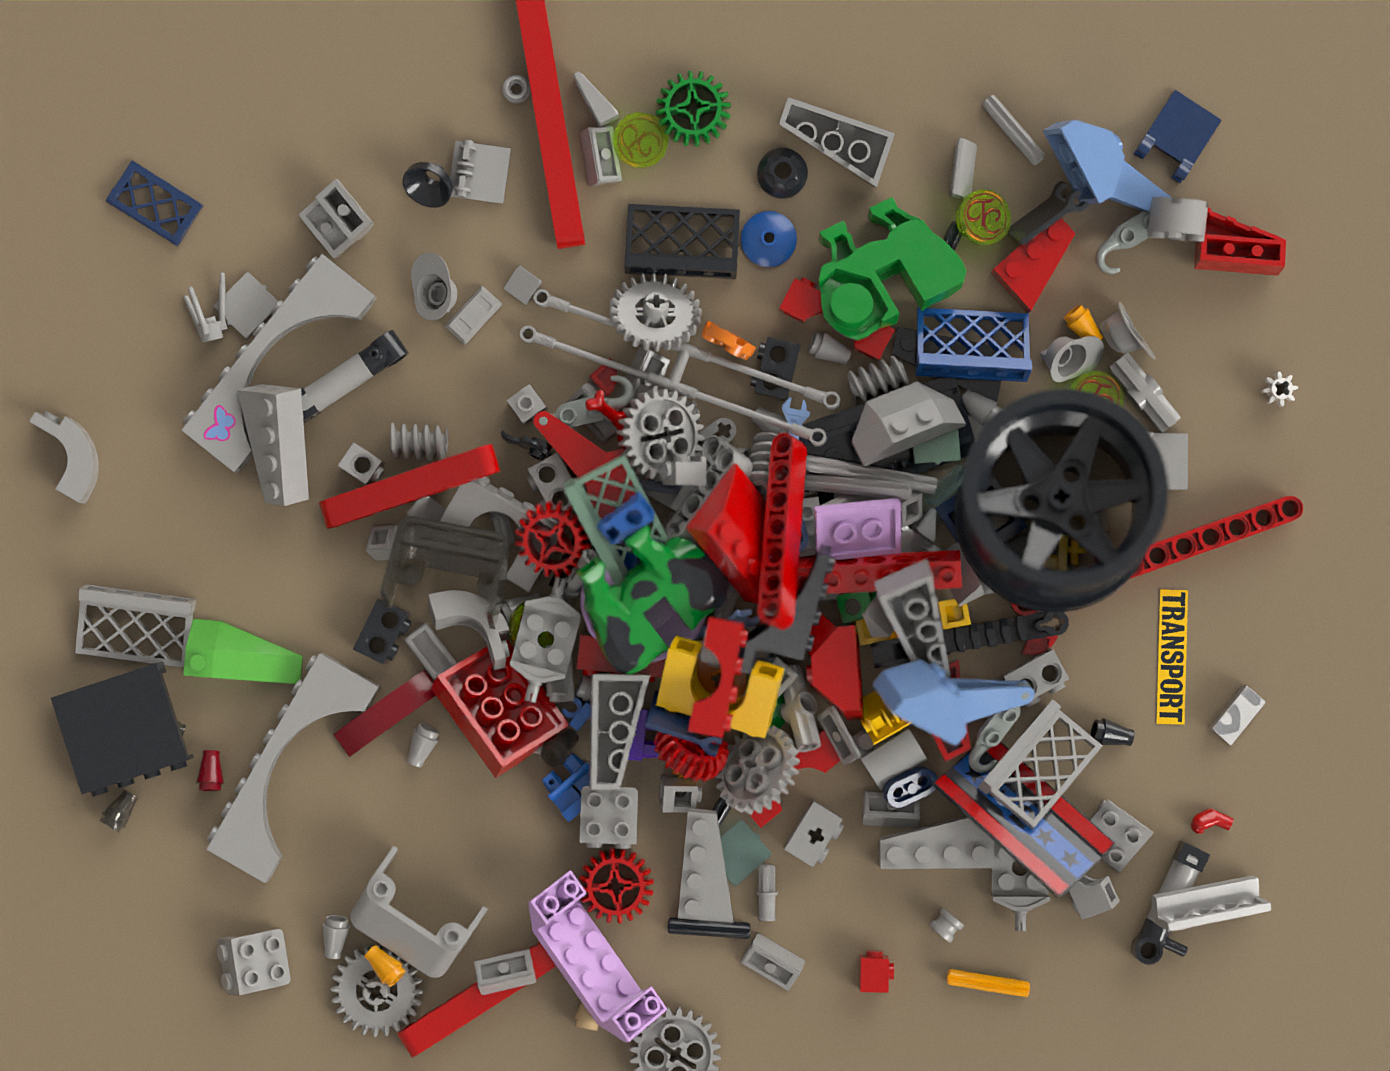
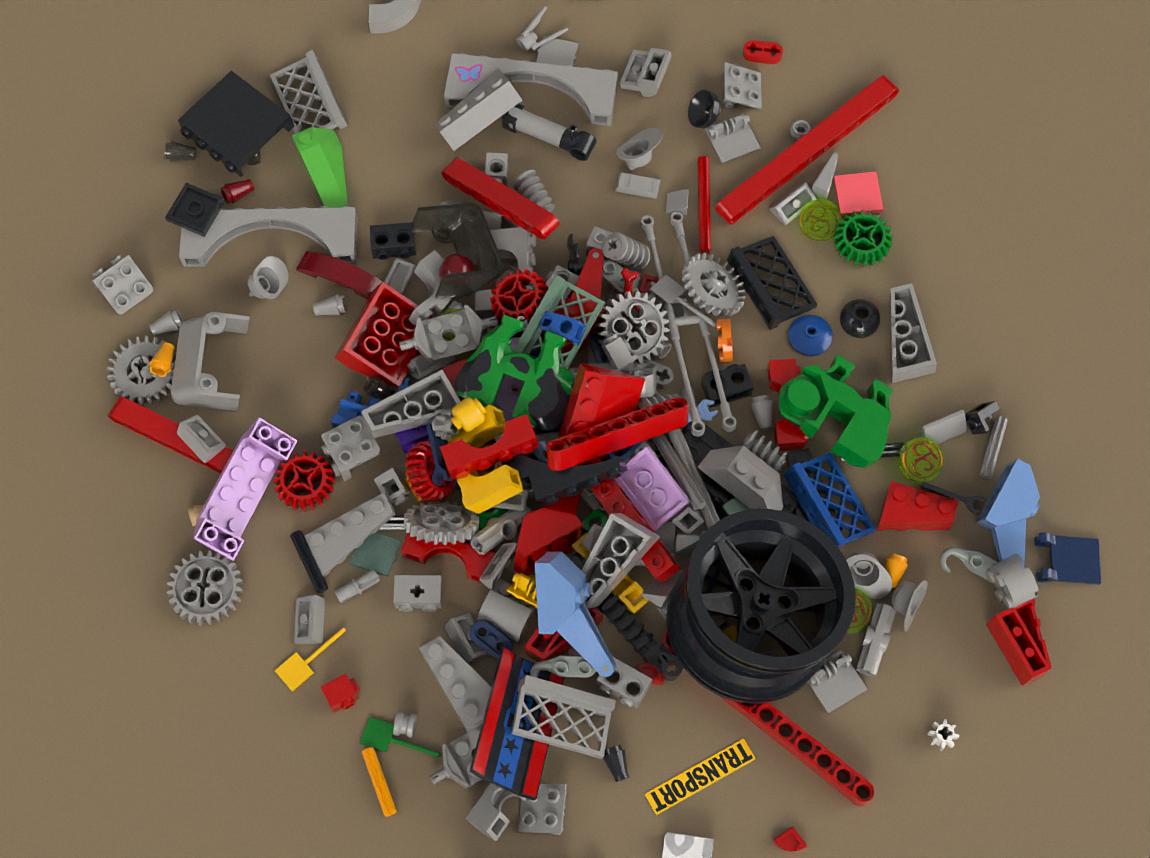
camera: 60 degrees right, 20 degrees down
(215, 835) = (195, 209): none -> black tile
(349, 796) = (268, 278): none -> light grey piece
(383, 62) = (762, 52): none -> red beam
(421, 120) = (741, 86): none -> light grey hinge
(470, 585) = (455, 264): none -> dark red hair
(542, 256) = (704, 205): none -> red axle
(558, 383) = (626, 251): none -> light grey piece
(633, 76) = (858, 193): none -> coral tile
(635, 367) = (669, 291): none -> light grey piece
(660, 706) = (444, 426): none -> light grey gear
(669, 679) = (468, 414): none -> yellow head
(817, 1005) = (295, 669): none -> yellow piece
(939, 956) = (380, 734): none -> green piece
(972, 121) = (977, 416): none -> black bracket
(1288, 608) = (790, 841): none -> red tile

